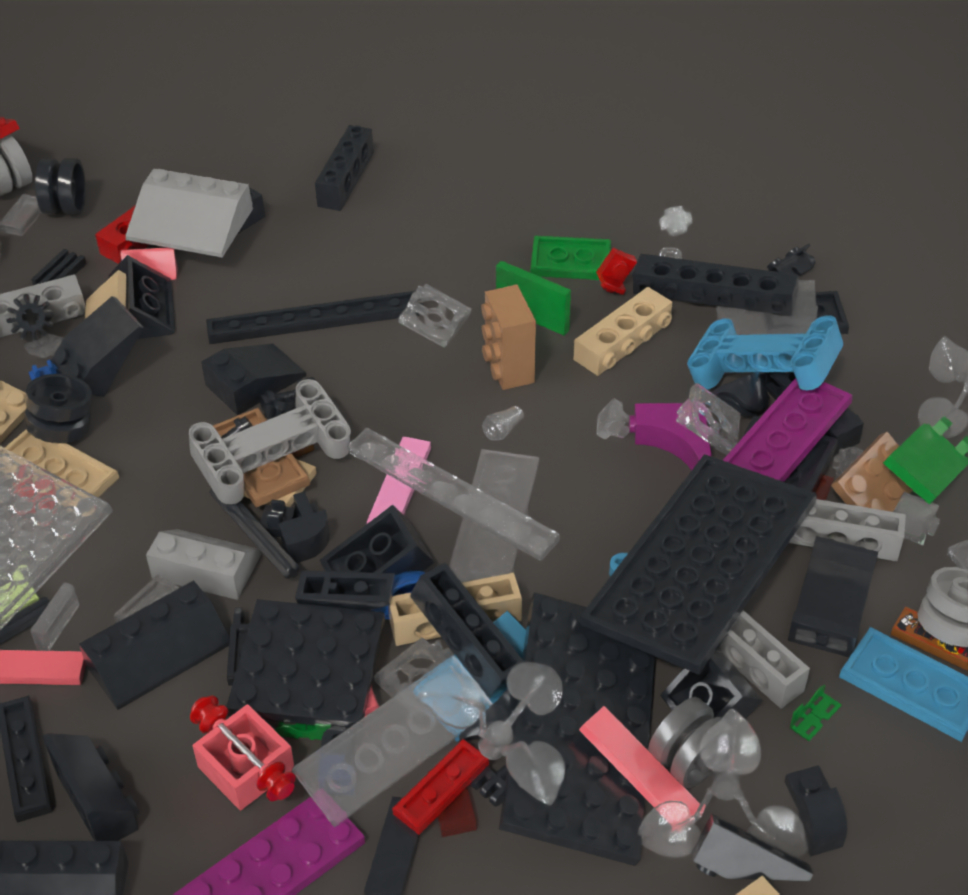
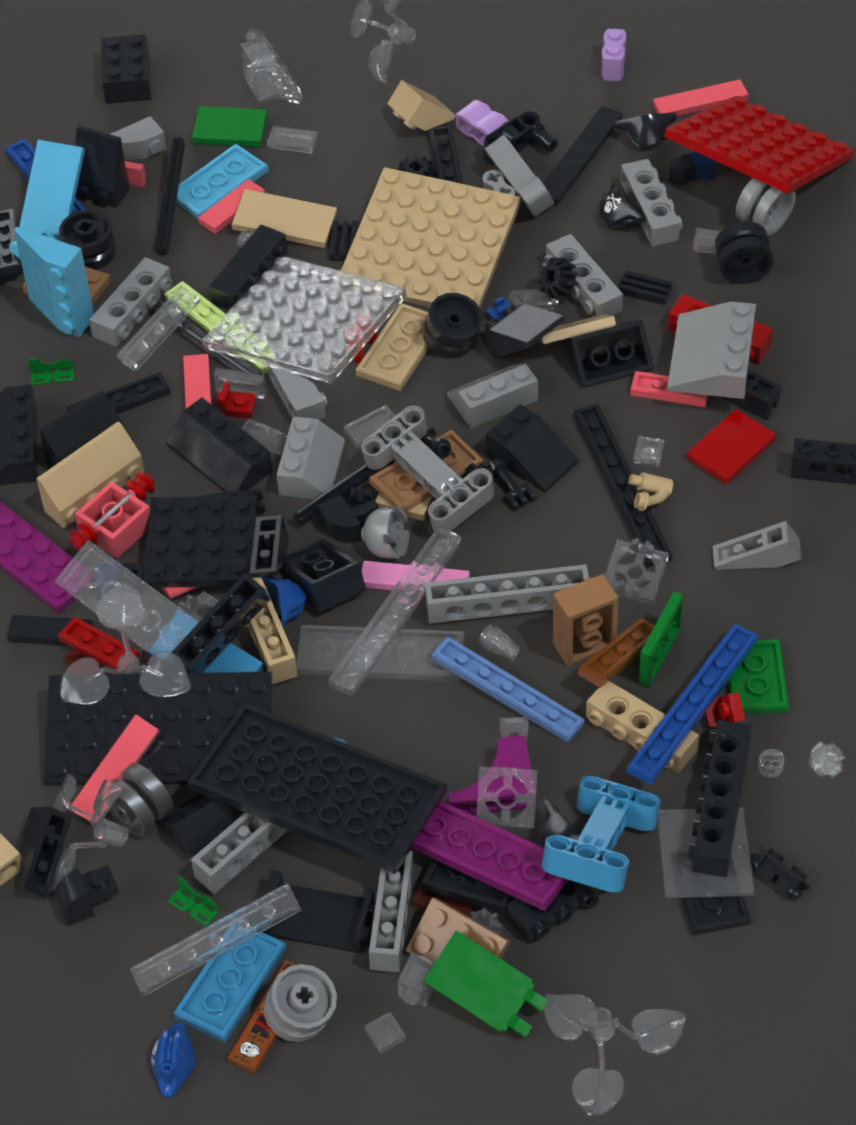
camera: 85 degrees right, 5 degrees up
(81, 625) = (236, 403): none -> red bracket
(96, 562) = (298, 394): none -> light grey slope
(159, 259) = (661, 346): coral slope -> none
(159, 393) = (495, 394): none -> light grey slope
(165, 782) = (87, 471): none -> tan slope
(166, 504) = (366, 425): none -> clear tile
(200, 275) = (655, 387): none -> coral tile
(283, 290) = (649, 450): none -> clear plate
(293, 239) = (731, 446): none -> red tile
(334, 285) = (649, 483): none -> tan plant
(340, 492) = (386, 533): none -> light grey cylinder
(430, 231) = (760, 549): none -> light grey slope
(449, 402) = (498, 593): none -> light grey brick
(558, 336) = (616, 654): none -> dark orange tile
(561, 423) = (508, 689): none -> medium blue tile
(615, 285) = (692, 704): none -> blue tile
(881, 682) = (215, 939): none -> clear tile

